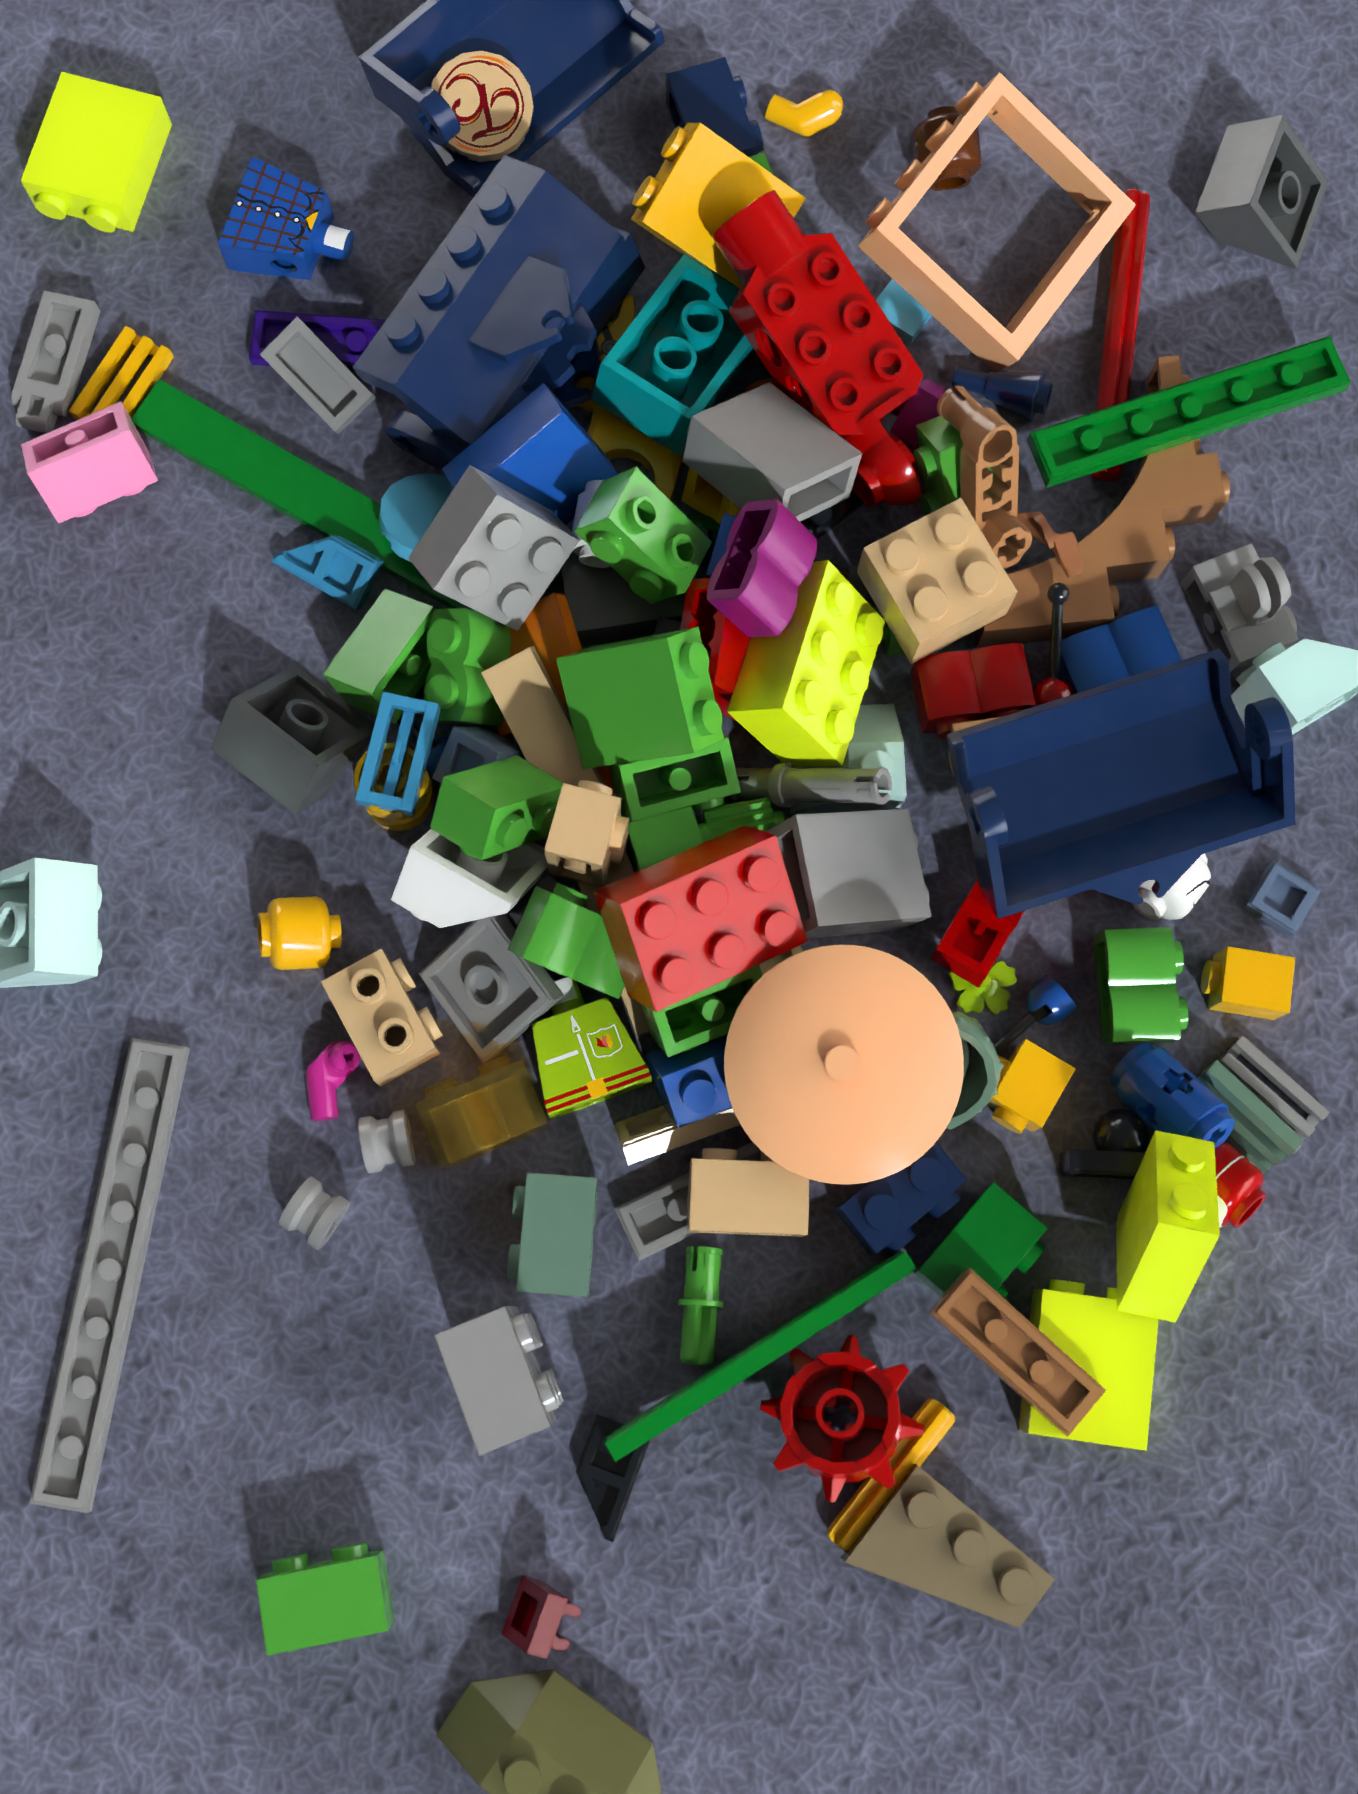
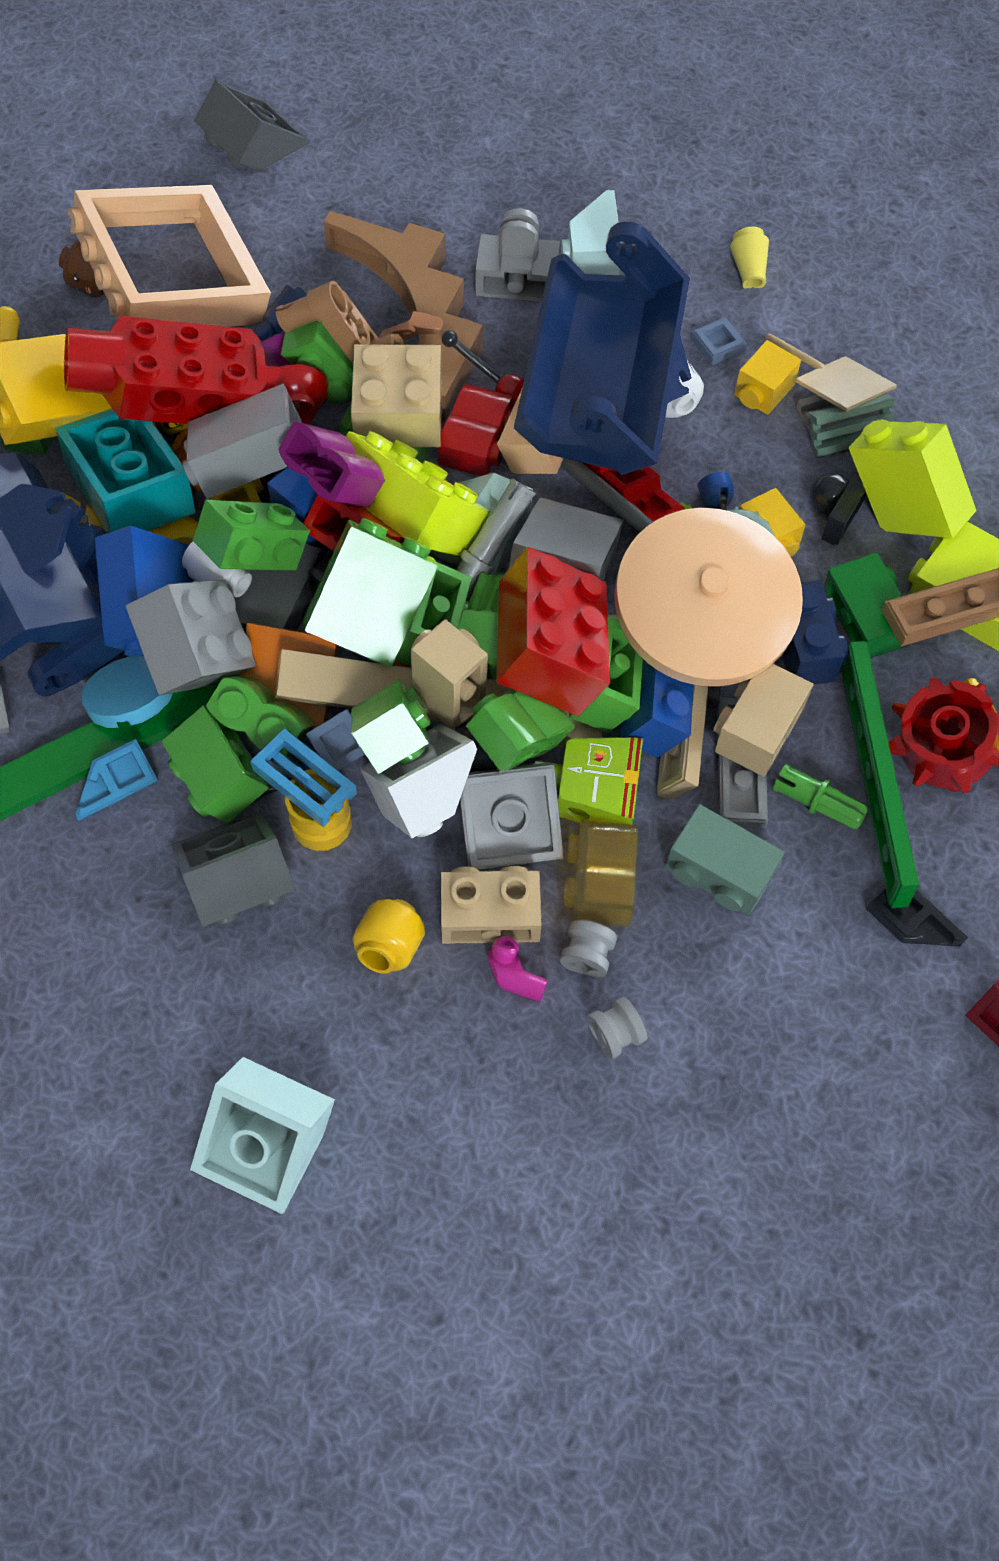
camera: 60 degrees left, 15 degrees down
(109, 1277) = (586, 1219): light grey tile -> none
(325, 1599) = (925, 1161): bright green brick -> none
(500, 1377) = (822, 929): light grey piece -> none
(945, 913) = (607, 494): none -> dark grey bar
(1117, 650) = (507, 339): blue brick -> none
(1123, 312) = (301, 251): red axle -> none
(1139, 986) = (735, 437): bright green brick -> none
(1155, 1081) = (806, 458): blue piece -> none
(1188, 411) = (374, 217): green tile -> none
(1292, 1077) = (839, 382): none -> tan piece

